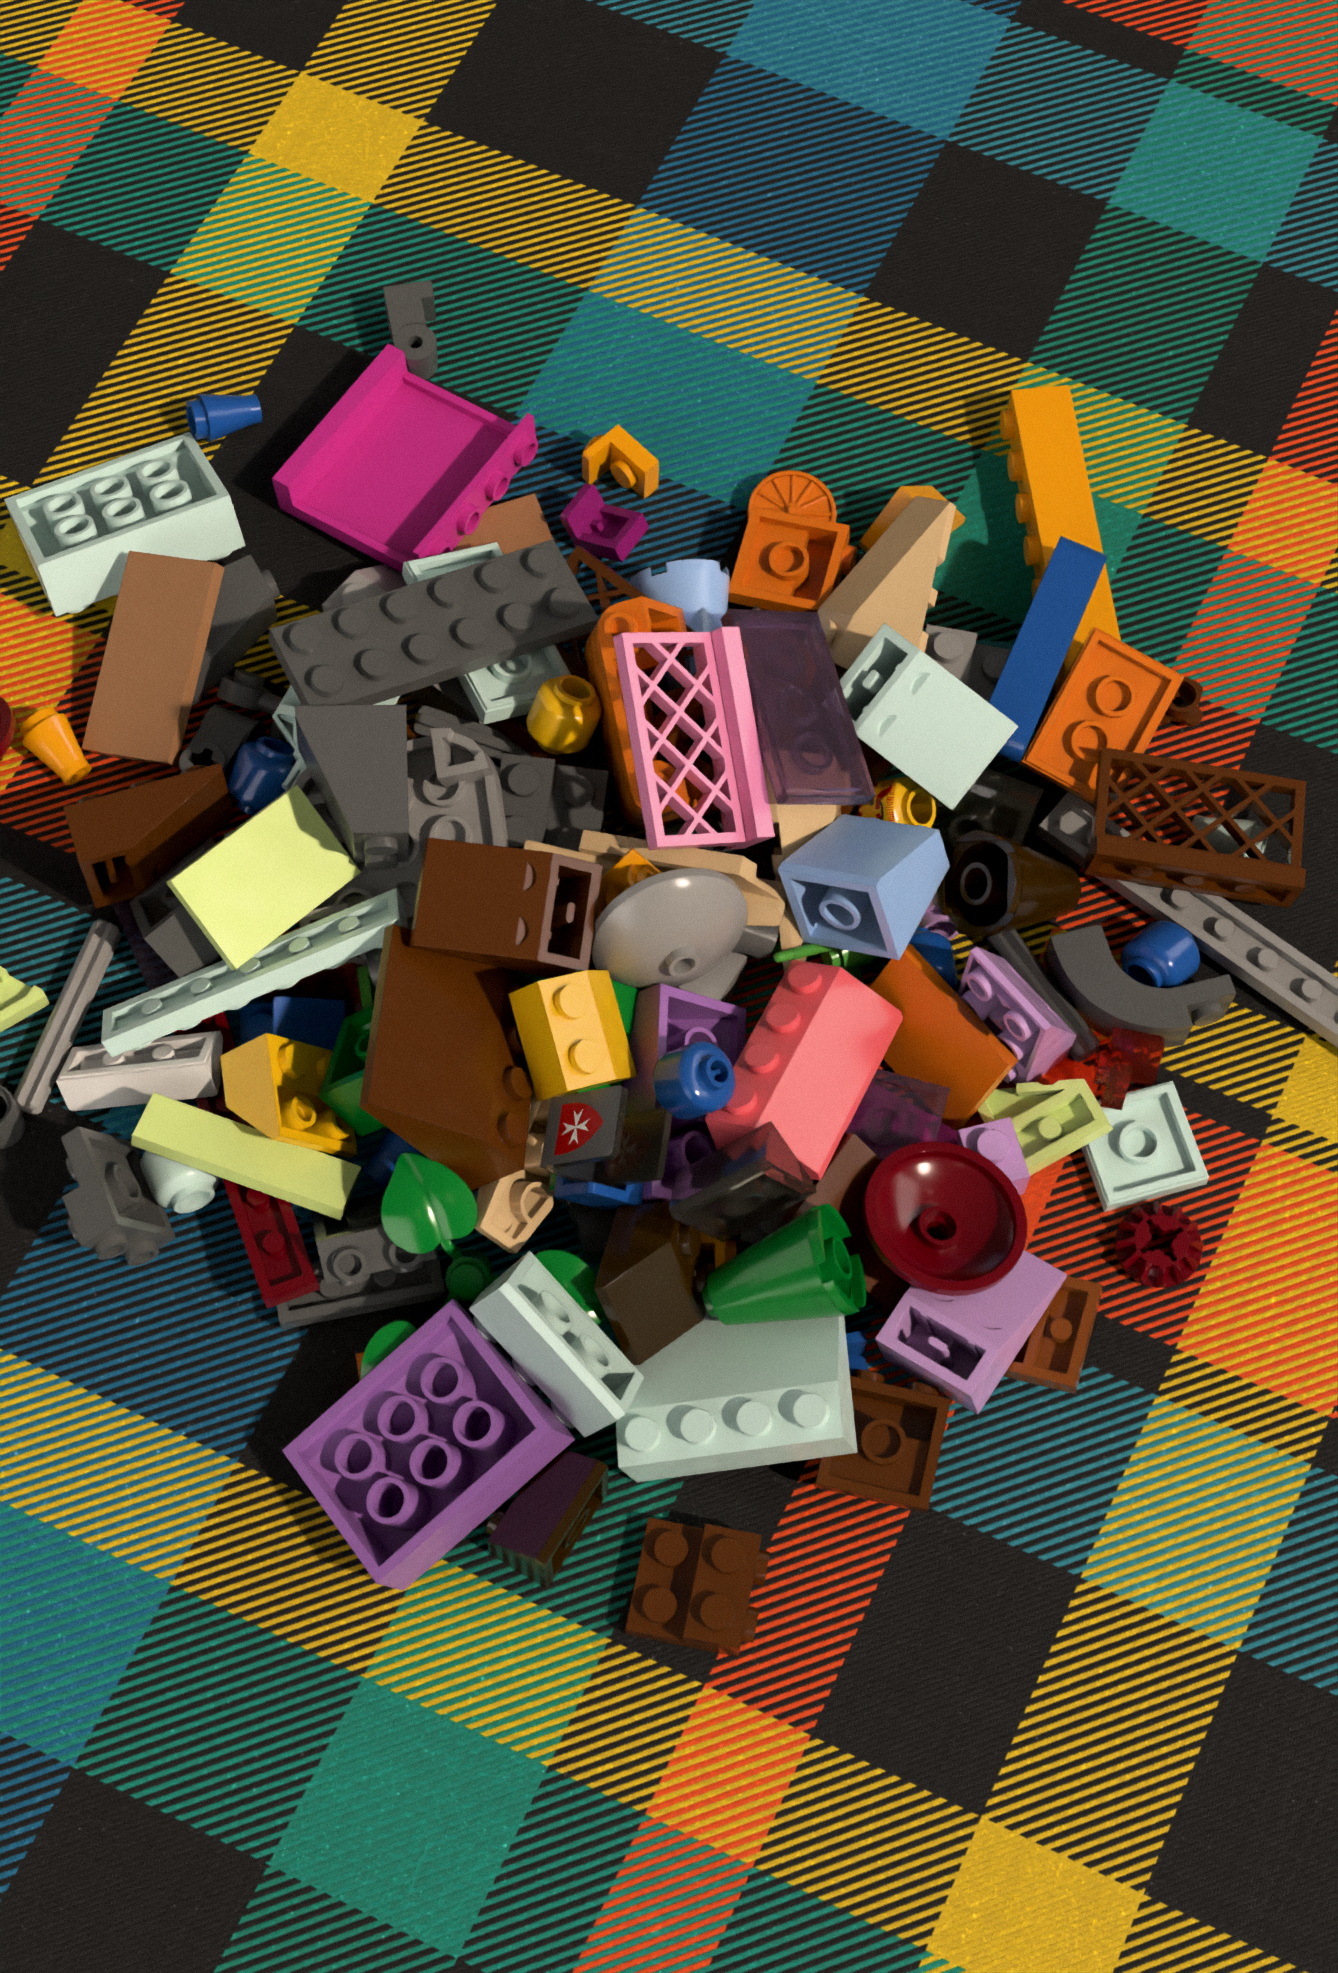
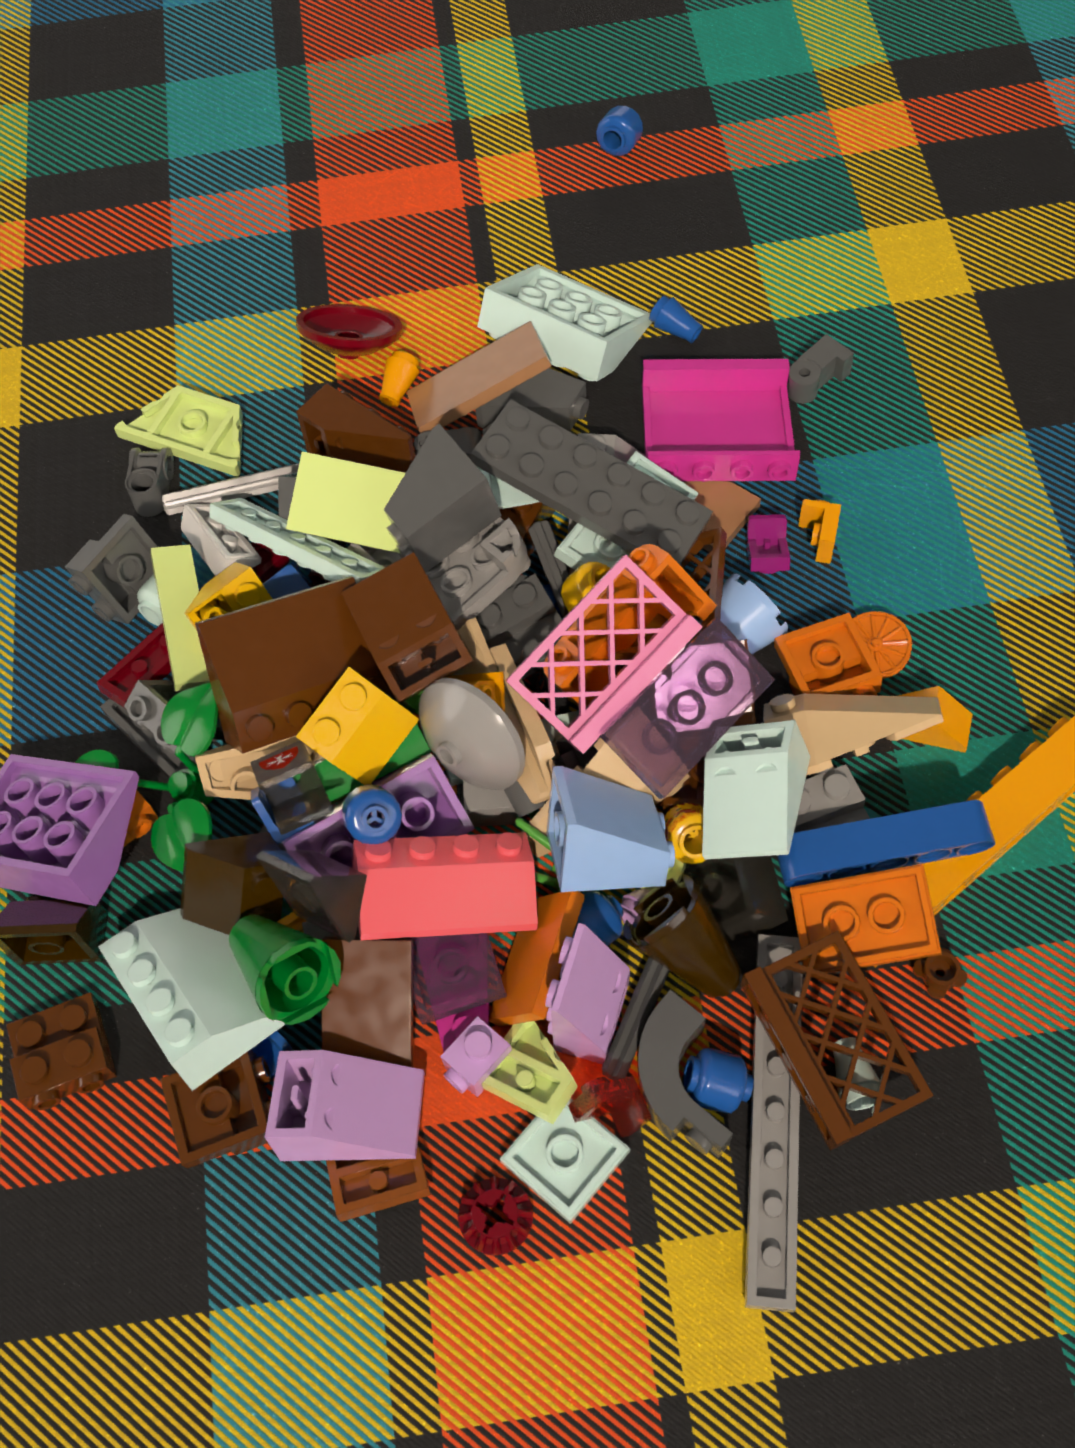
camera: 65 degrees right, 5 degrees down
(557, 1346) = (140, 849): light aqua slope -> none
(957, 1197) = (396, 1010): dark red dish -> none

